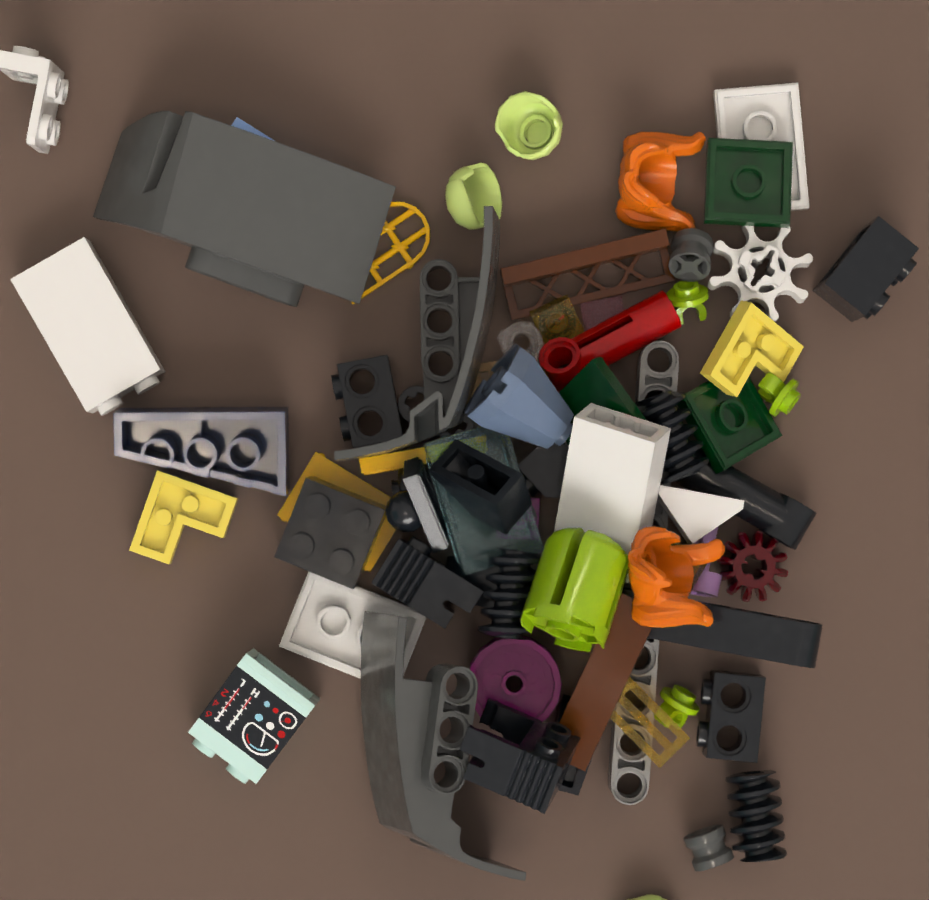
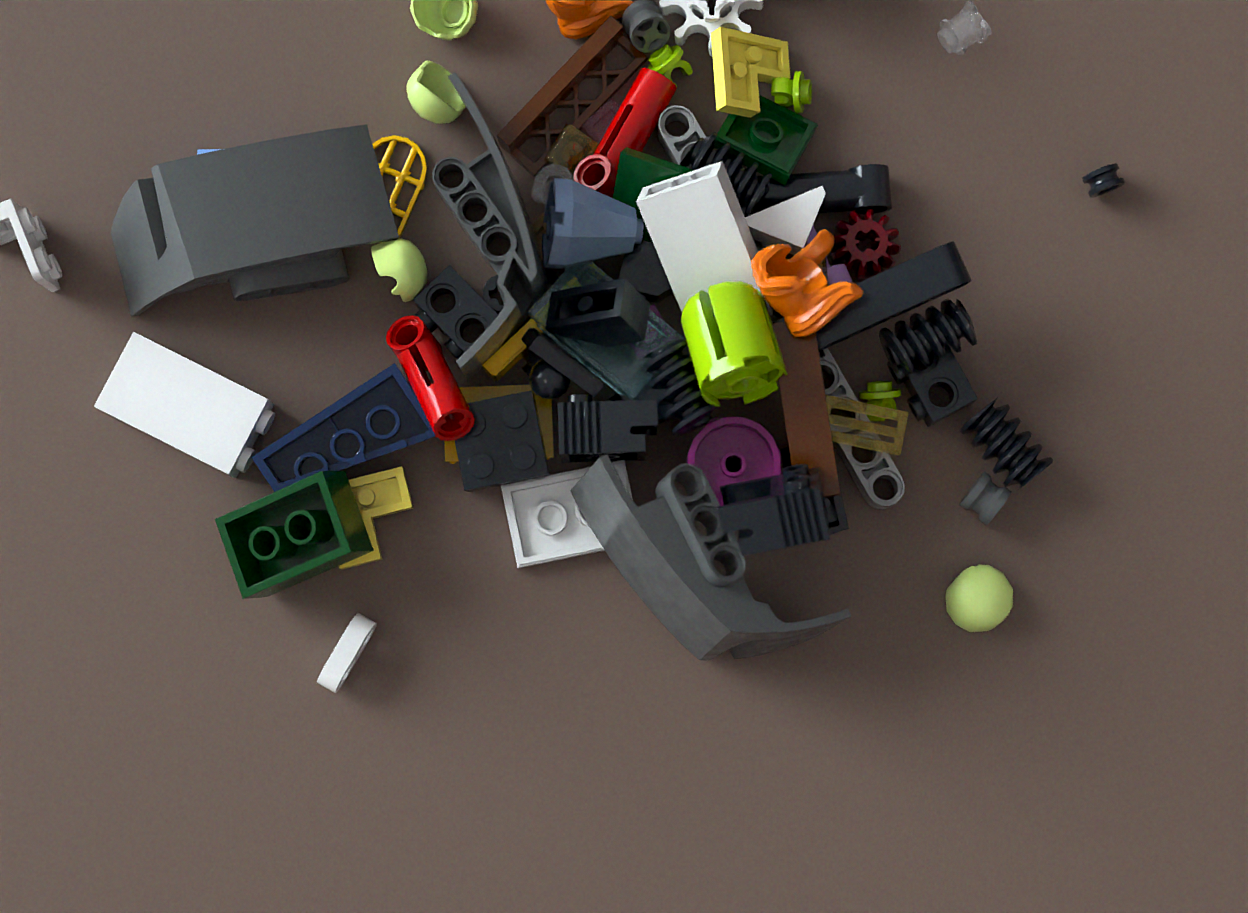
camera: 35 degrees left, 5 degrees down
(89, 624) = (346, 653): none -> white beam
(107, 500) = (294, 534): none -> dark green brick
(252, 716) = (534, 638): slope -> none
(304, 469) = (442, 401): none -> red piece
(348, 327) = (404, 263): none -> yellowish green hair
(749, 685) = (927, 335): none -> black piece

